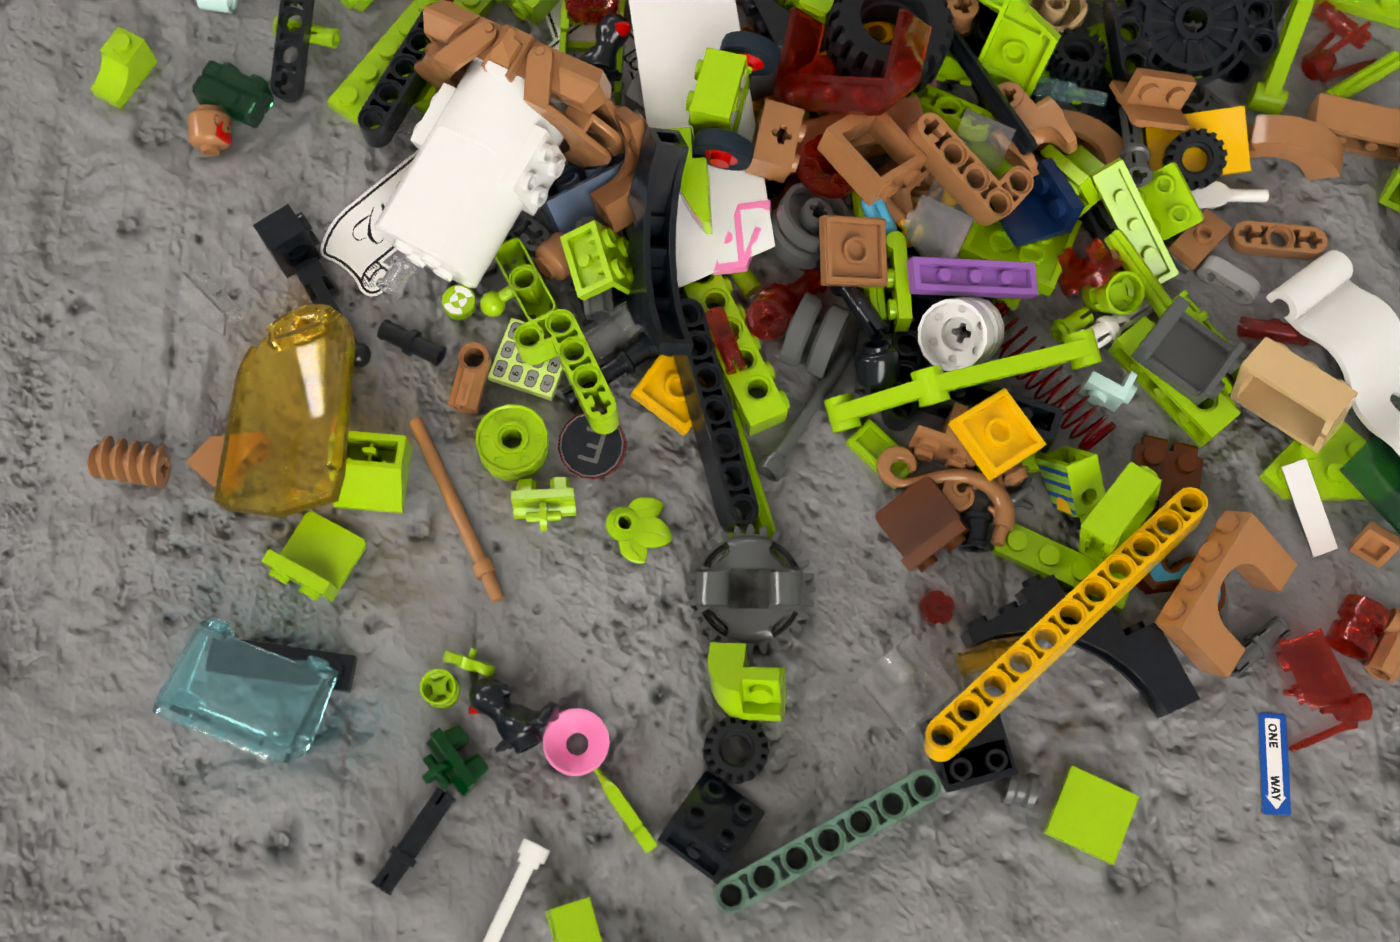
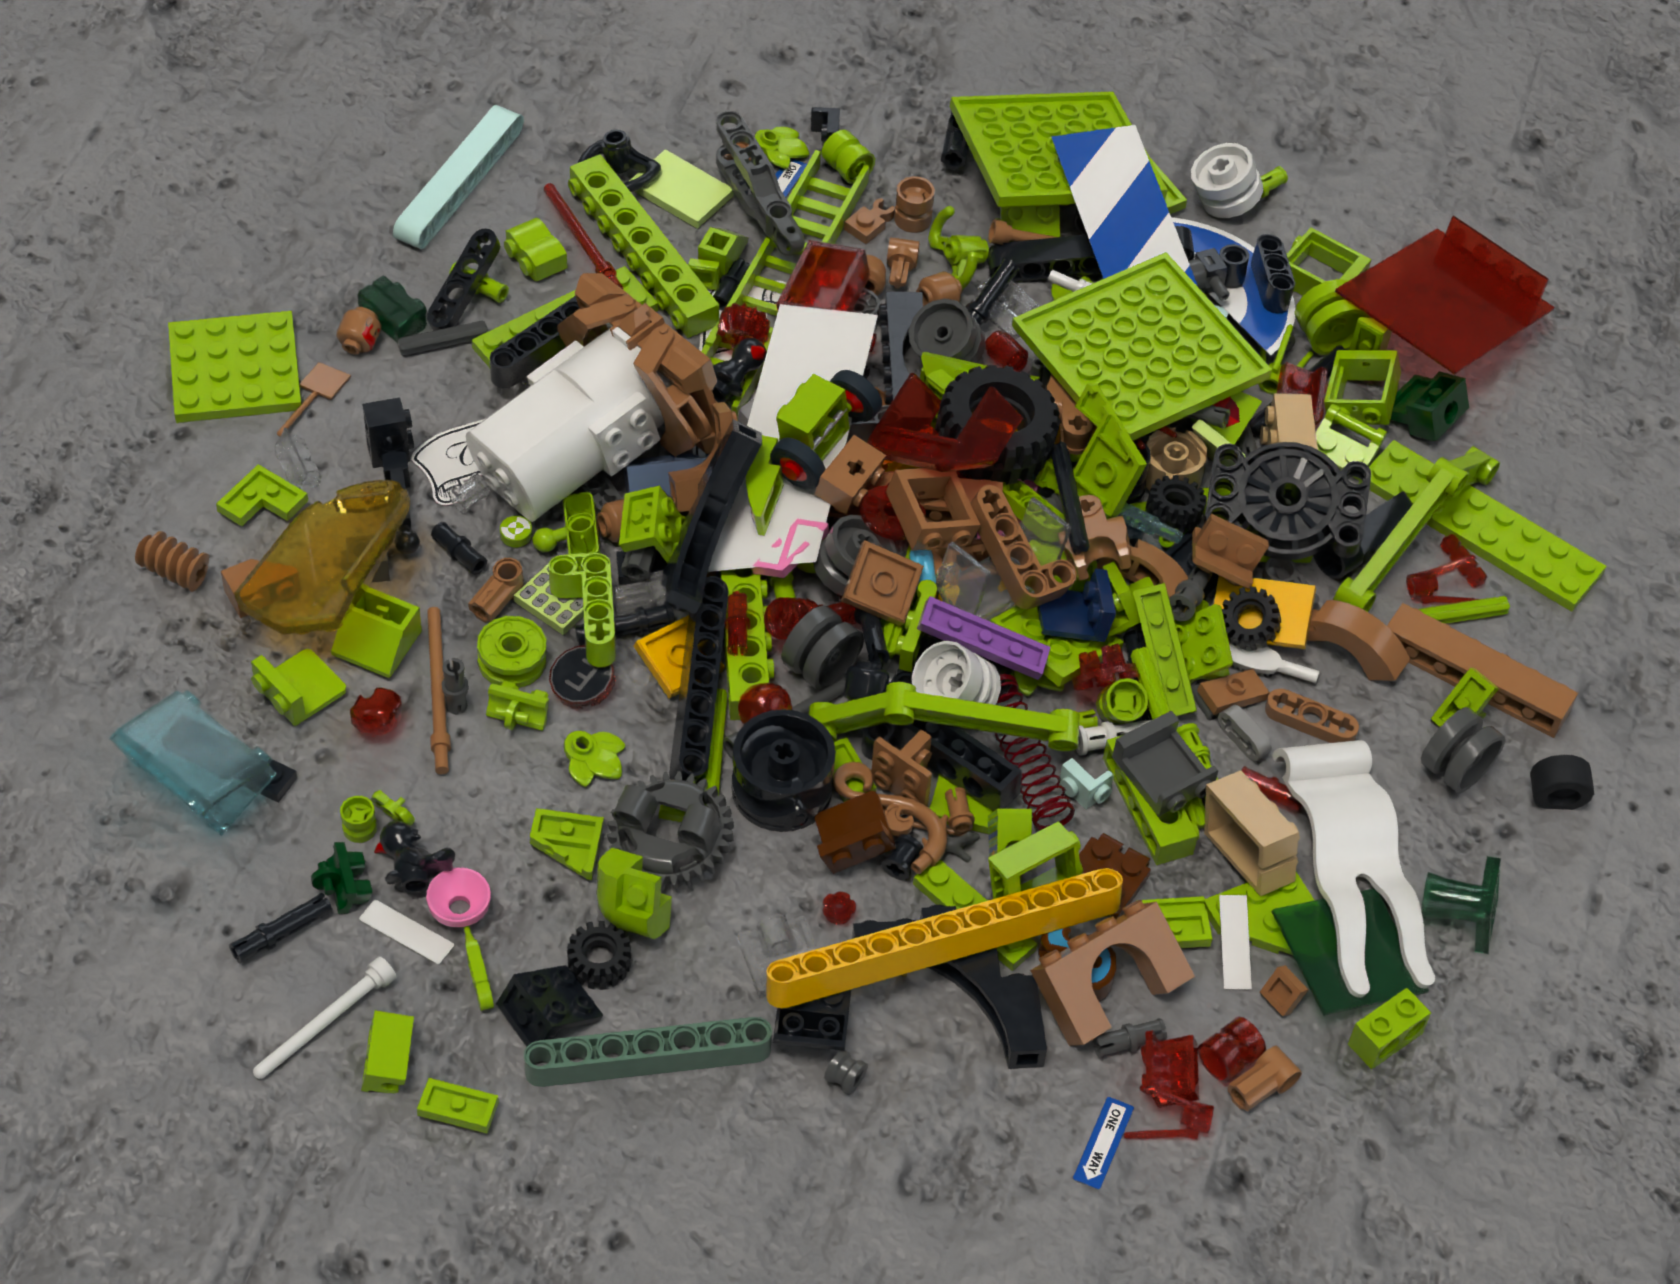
camera: 20 degrees right, 20 degrees down
(98, 212) = (234, 366): none -> lime plate
(123, 67) = (308, 260): lime arch -> none
(184, 347) = (259, 490): none -> lime plate
(195, 197) = (320, 381): none -> medium nougat piece
(295, 108) = (441, 338): none -> dark grey axle
(408, 562) = (377, 713): none -> clear red hair
(476, 508) = (455, 686): none -> dark grey pin
(536, 790) = (406, 931): none -> white sticker
(653, 631) = (568, 838): none -> lime wing
(787, 422) = (761, 699): none -> clear red hair
(832, 484) = (782, 770): none -> black piece
(997, 434) = (947, 765): yellow tile -> none
(1091, 815) = (905, 1120): lime tile -> none
(1254, 497) = (1187, 920): none -> lime plate

